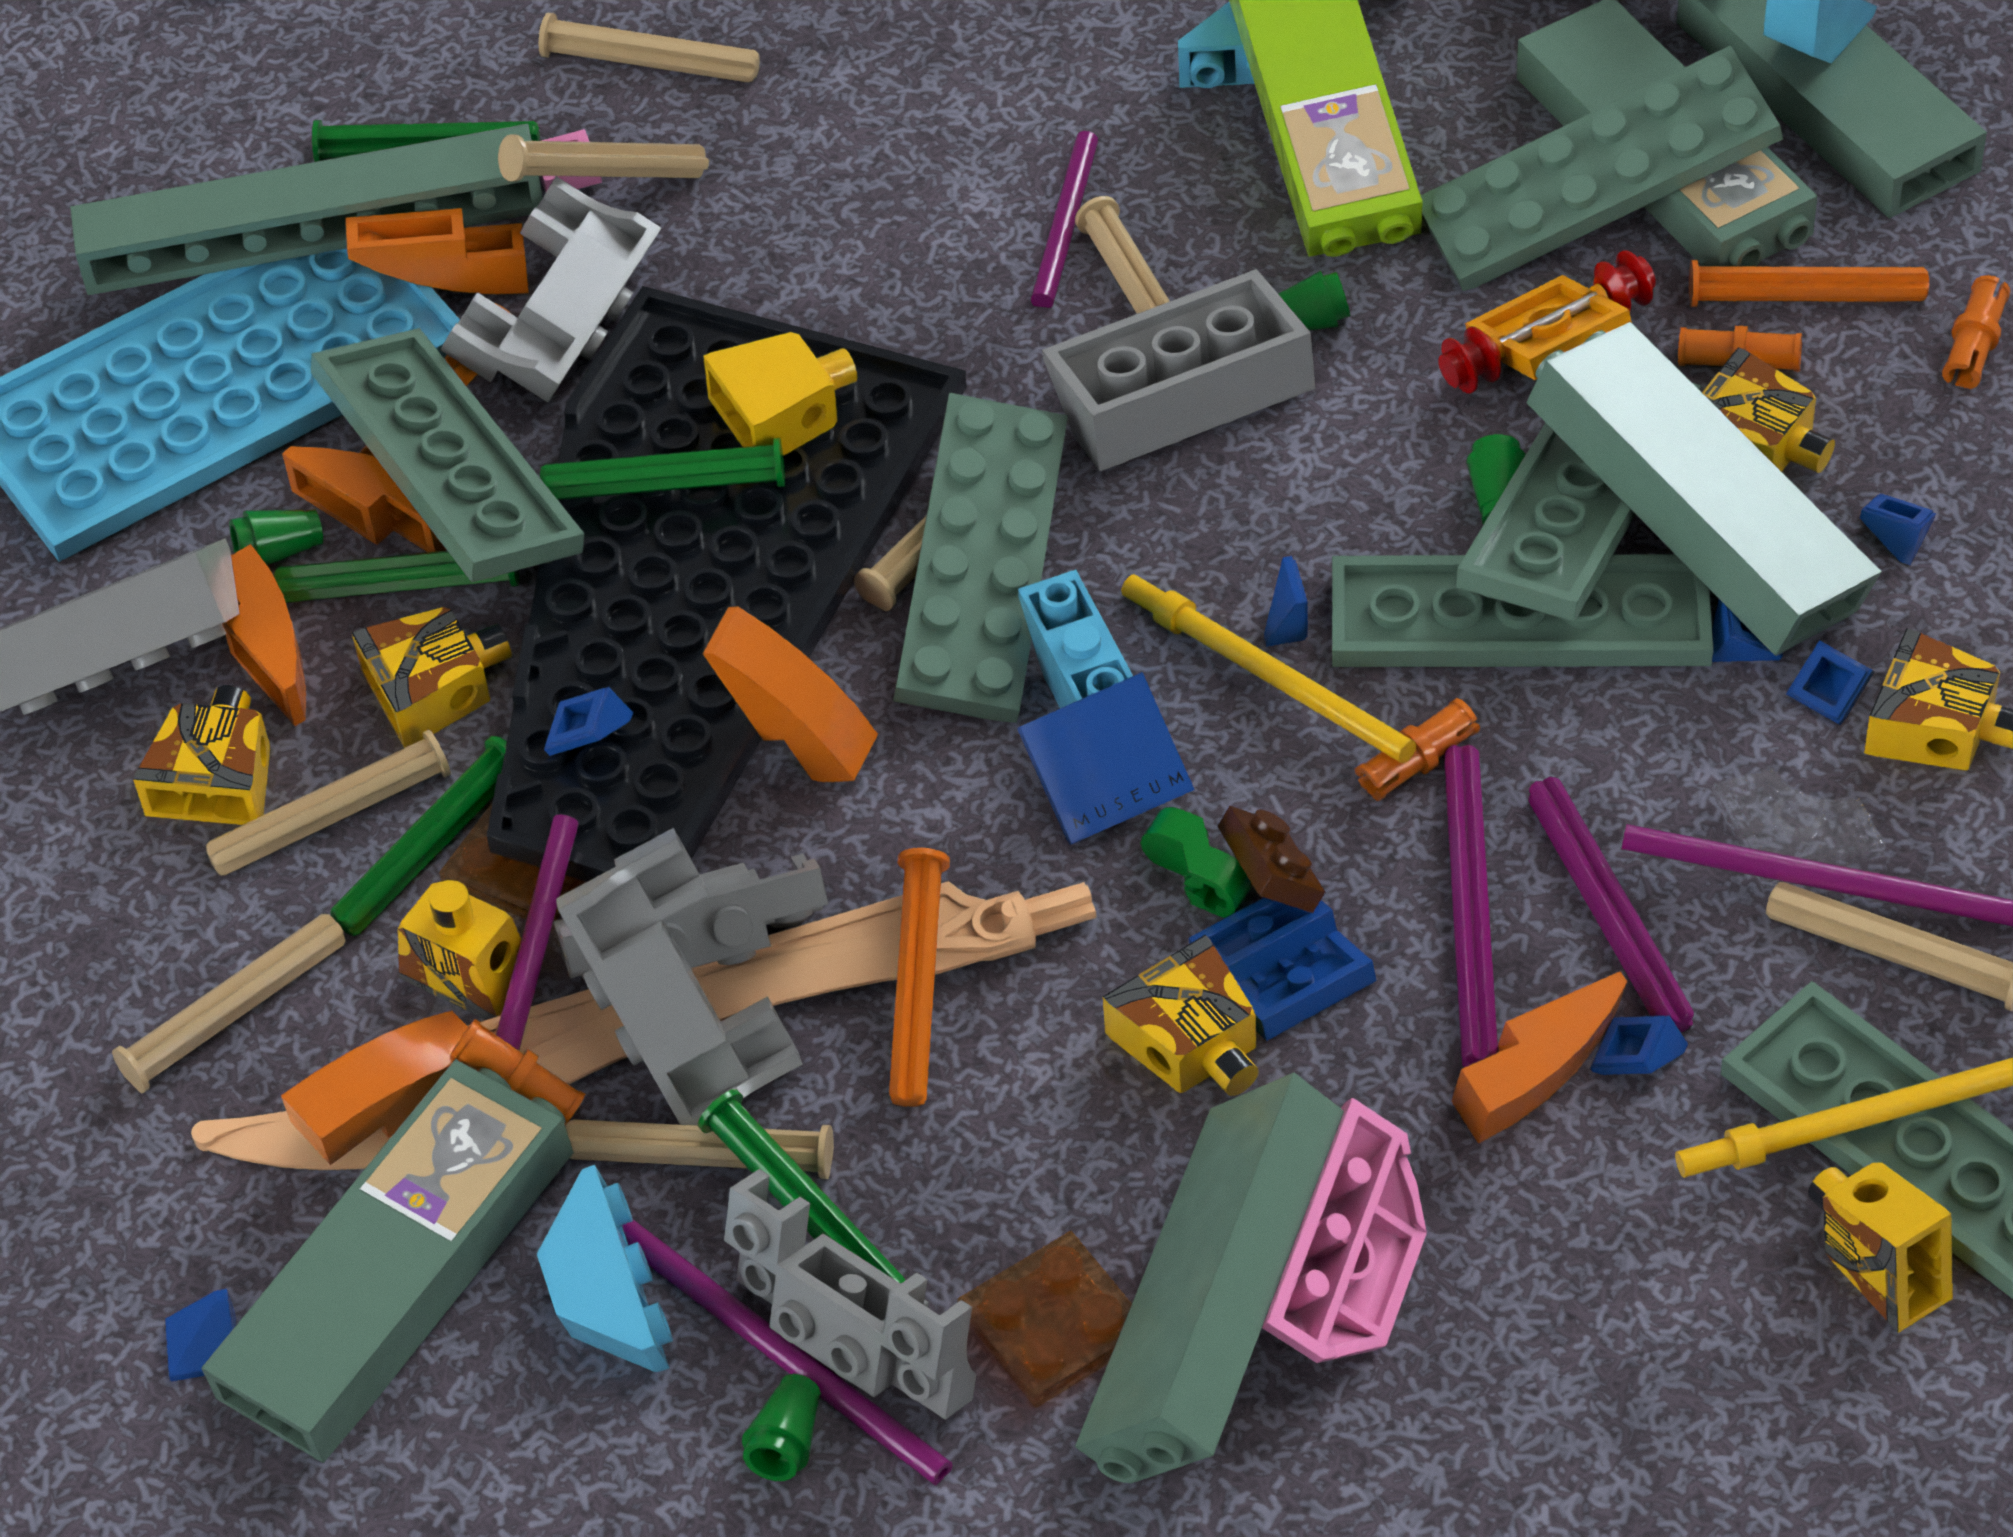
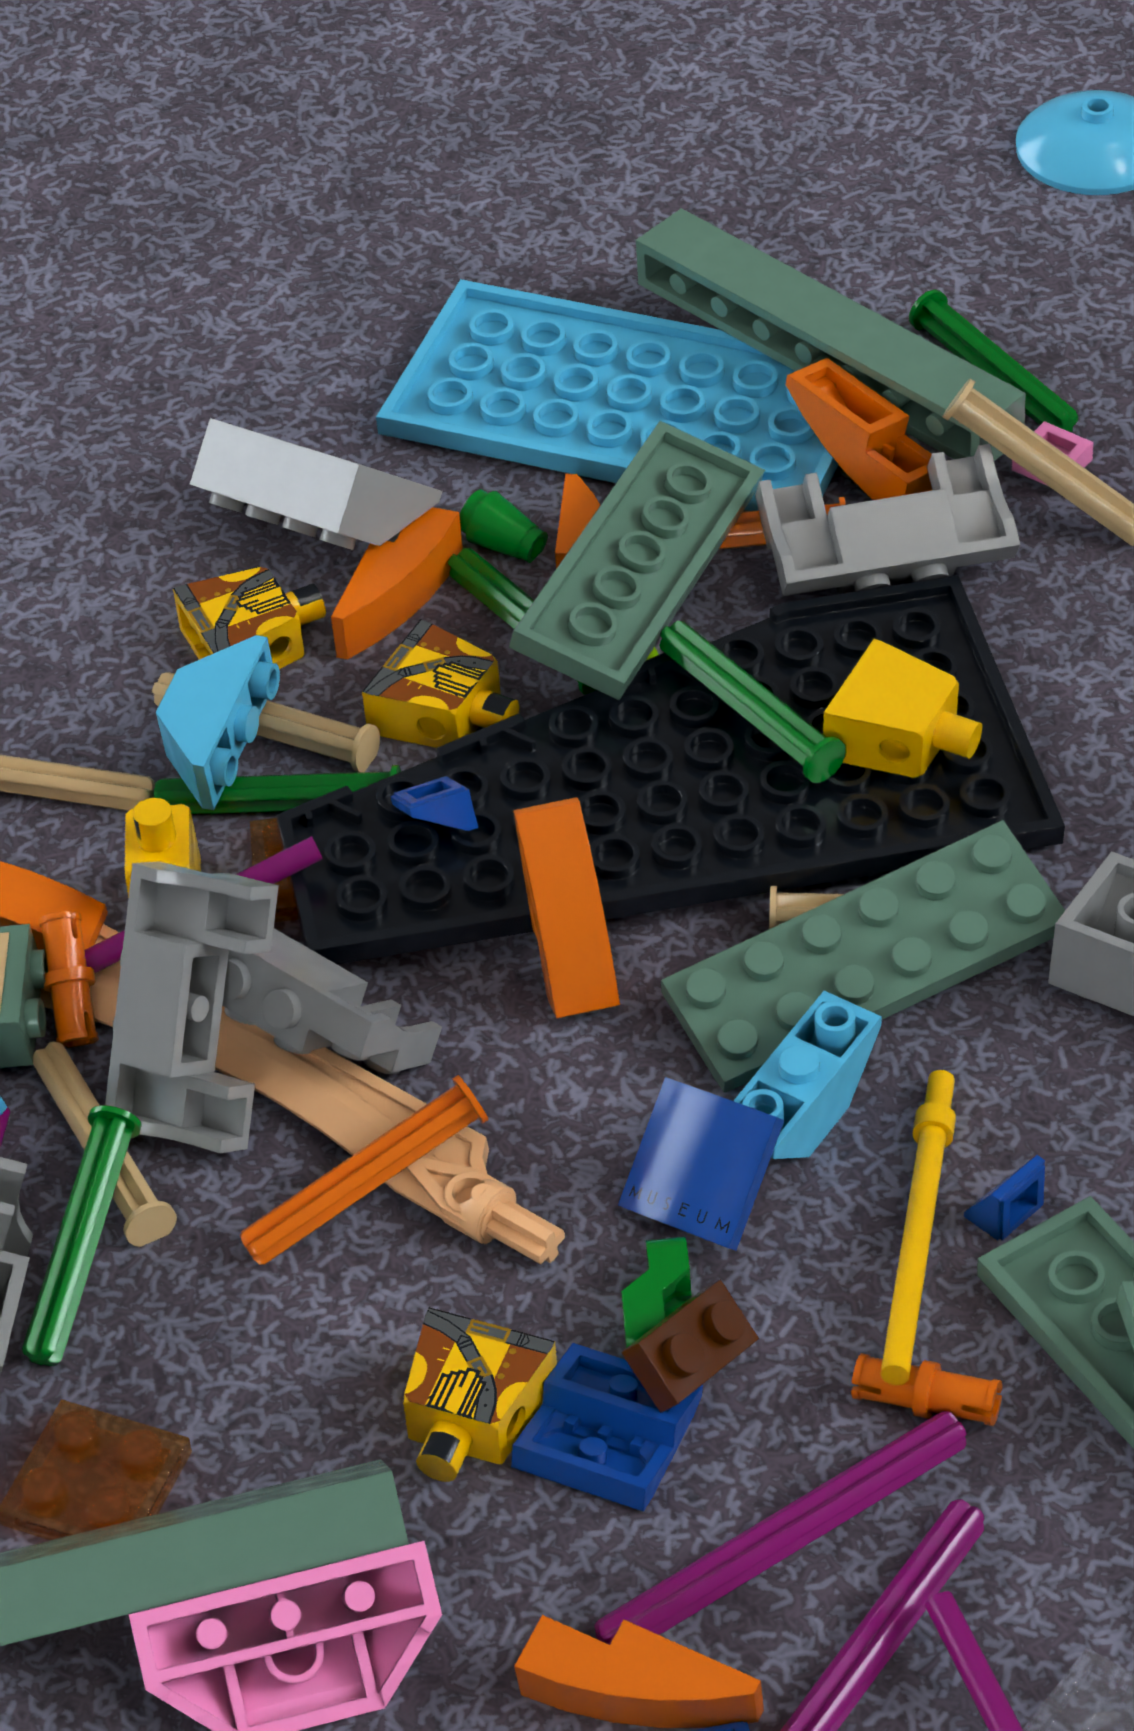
camera: 55 degrees right, 5 degrees down
(330, 829) = (214, 713): none -> medium azure slope

